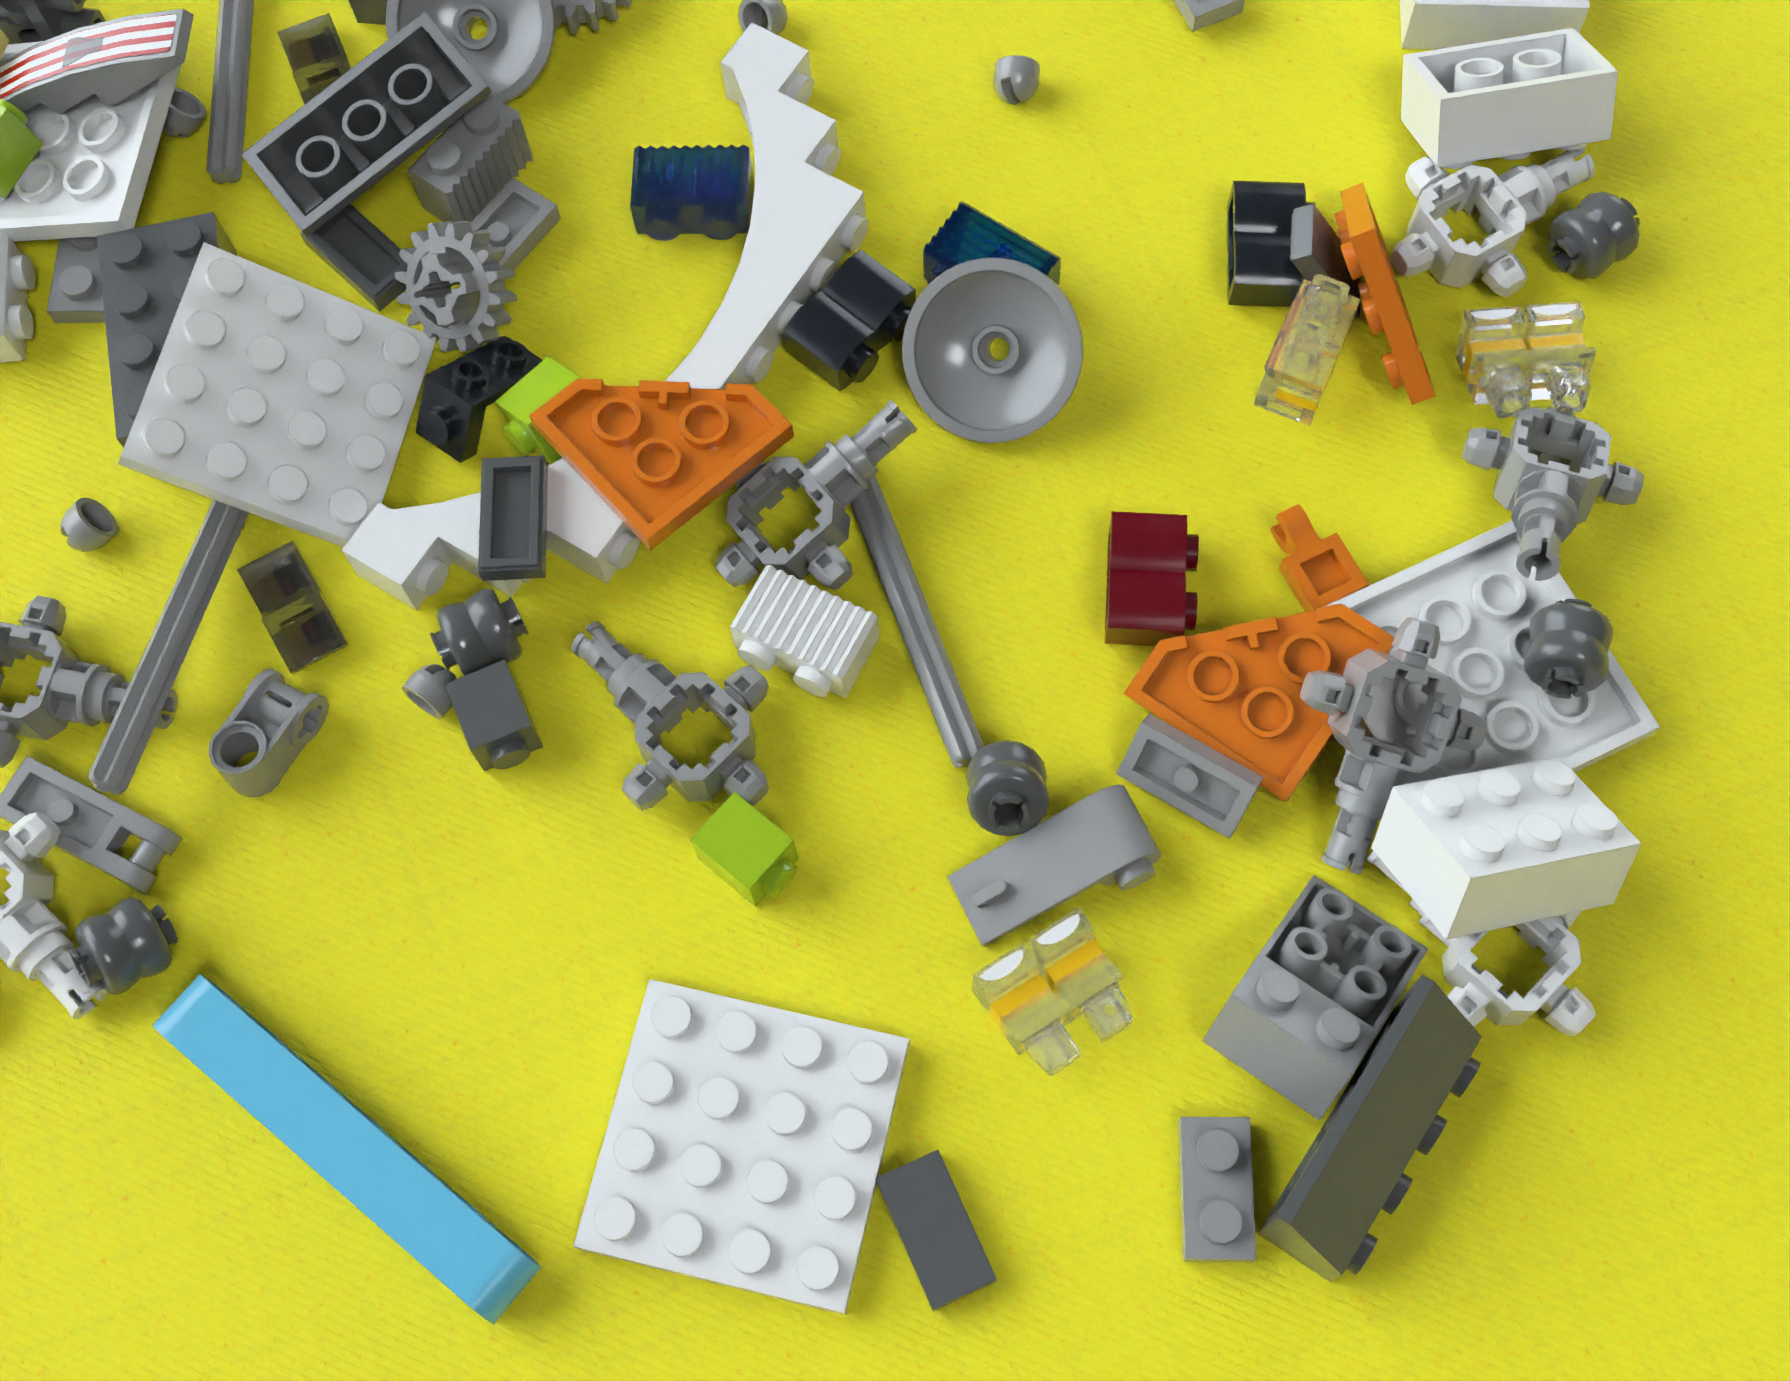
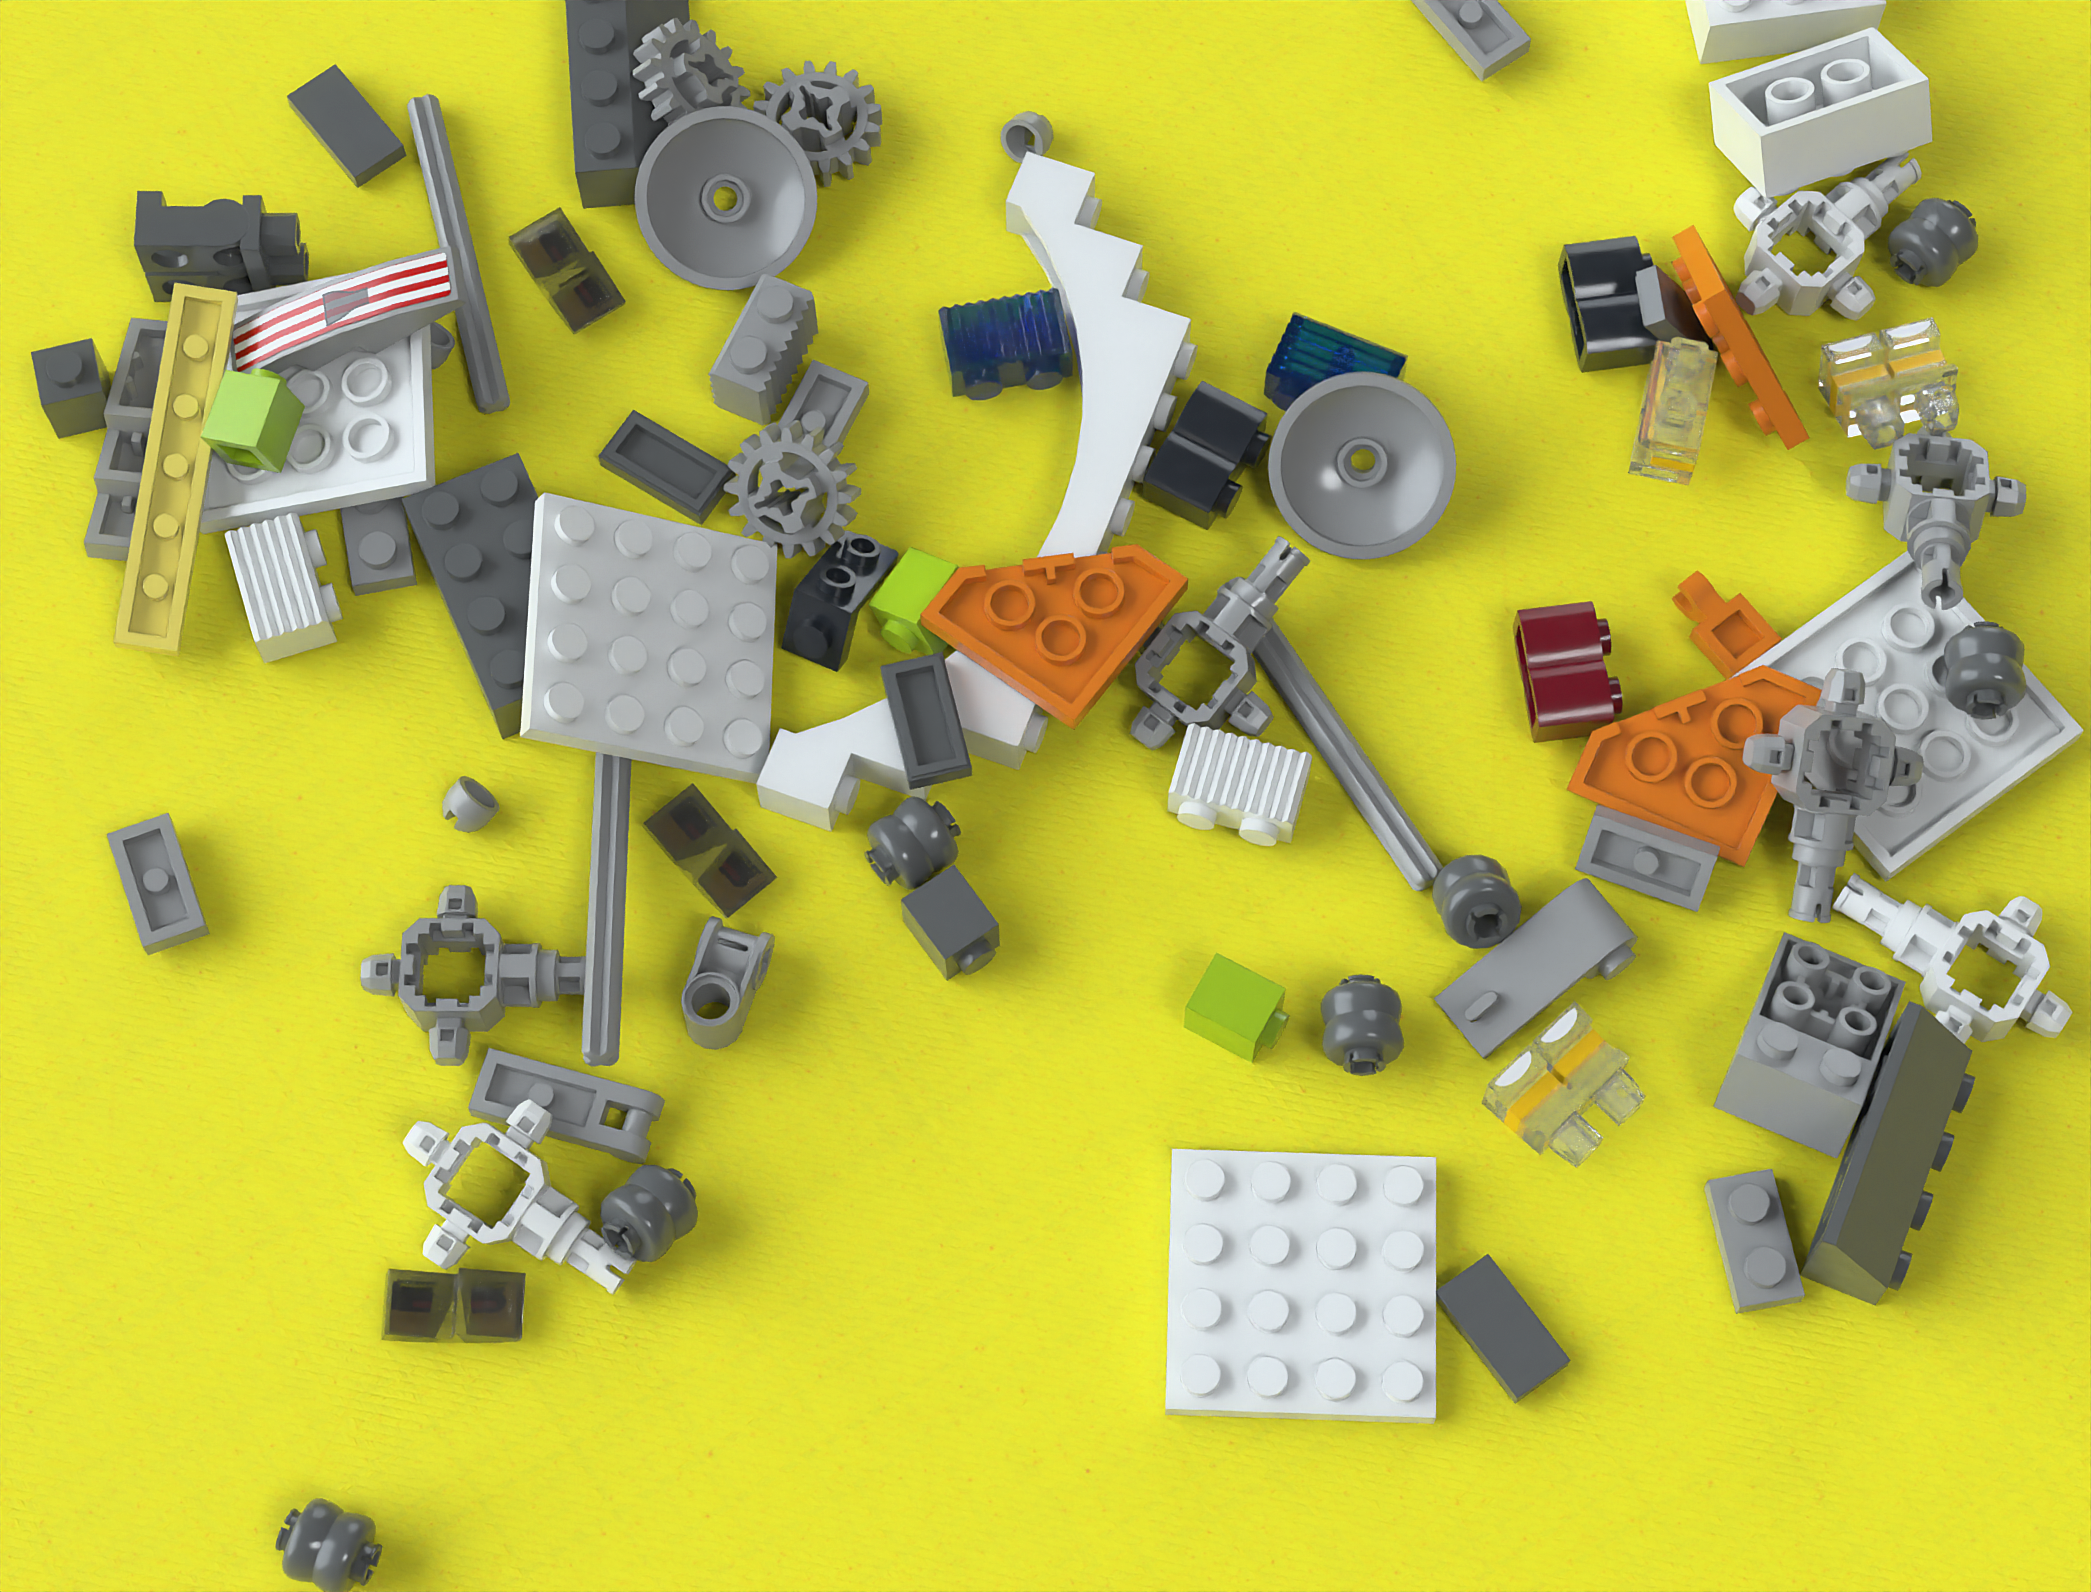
camera: 15 degrees left, 0 degrees up
(348, 1149) = (921, 1359): medium azure beam -> none
(366, 123) = (658, 334): dark grey slope -> none
(428, 689) = (877, 909): light grey hinge -> none
(654, 703) = (1107, 879): light grey piece -> none
(865, 890) = (1362, 1025): none -> dark grey piece
(1016, 78) = (1311, 165): light grey hinge -> none
(1503, 846) = (1959, 870): white brick -> none

